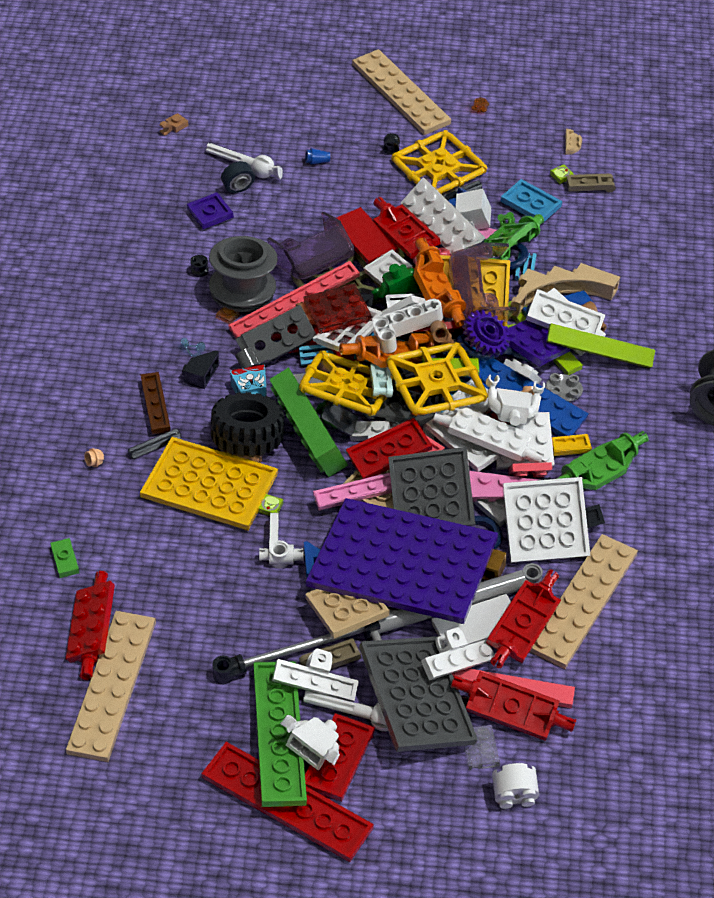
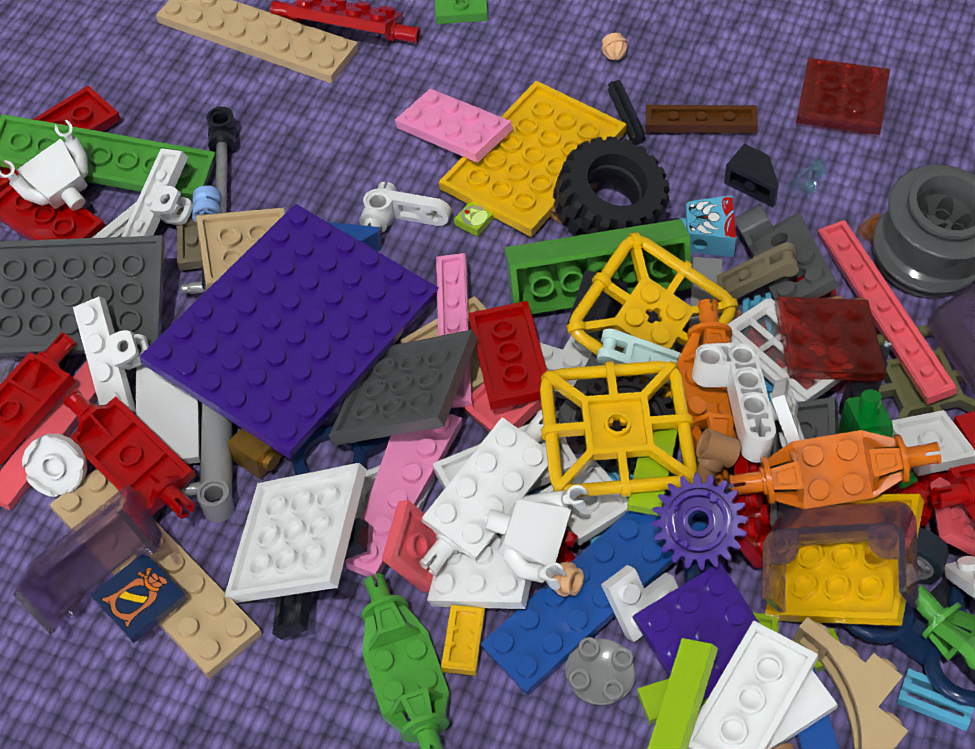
camera: 110 degrees right, 5 degrees up
(119, 336) = (843, 96): none -> clear red plate
(192, 530) = (454, 125): none -> bright pink plate
(294, 347) = (760, 270): none -> dark tan plate
(315, 641) = (206, 201): none -> light blue wheel
(542, 661) = (54, 464): none -> white tile
(589, 621) = (86, 555): none -> clear purple windscreen
(611, 588) = (139, 597): none -> dark blue tile

